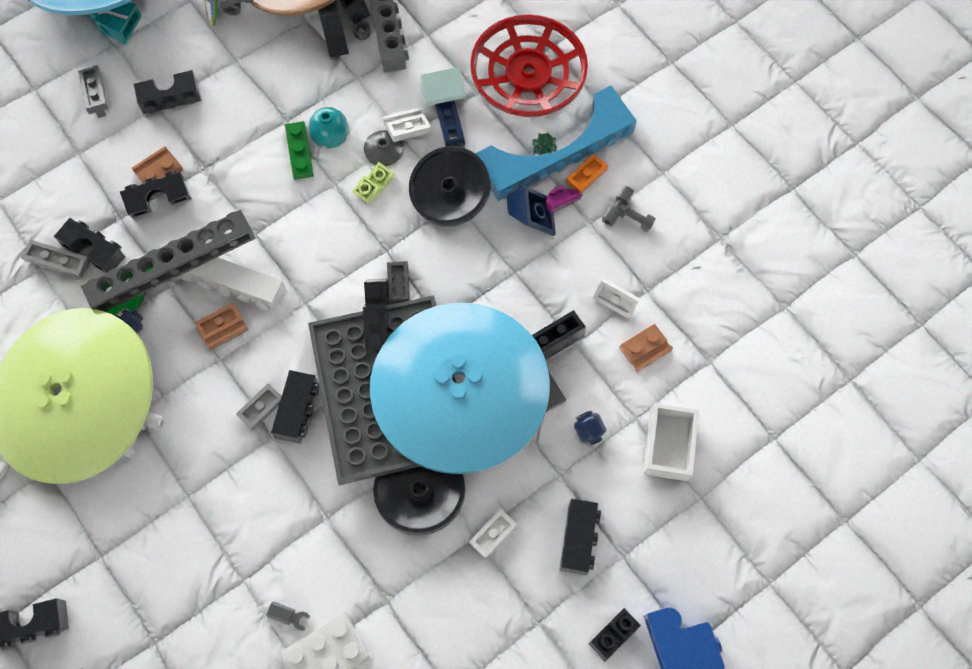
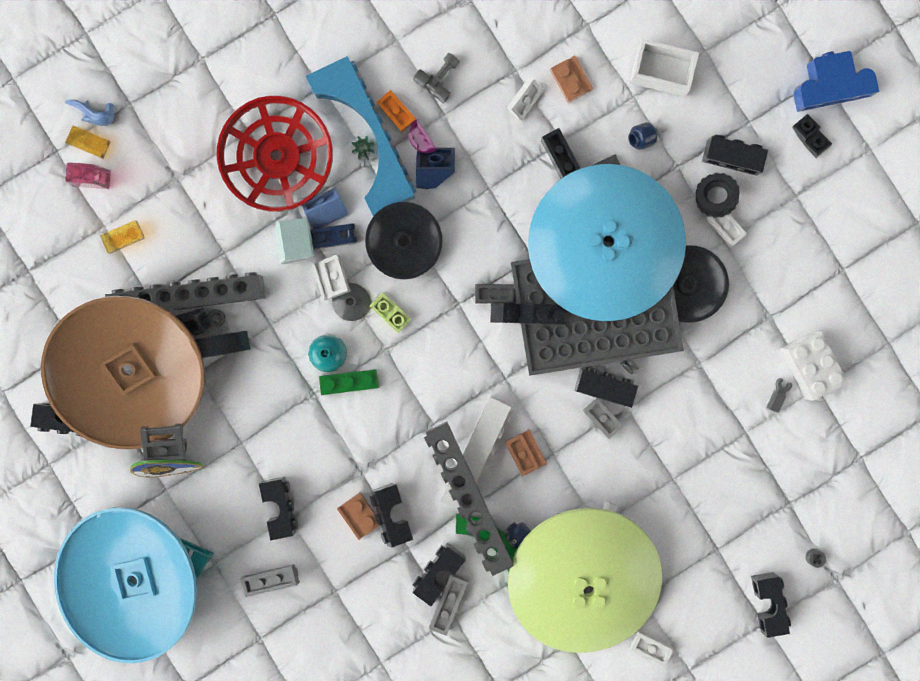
camera: 85 degrees left, 20 degrees up
(320, 432) = (629, 366): none -> dark grey bush
(477, 115) = (325, 209): none -> medium blue panel
(521, 531) = (720, 209): none -> black tyre

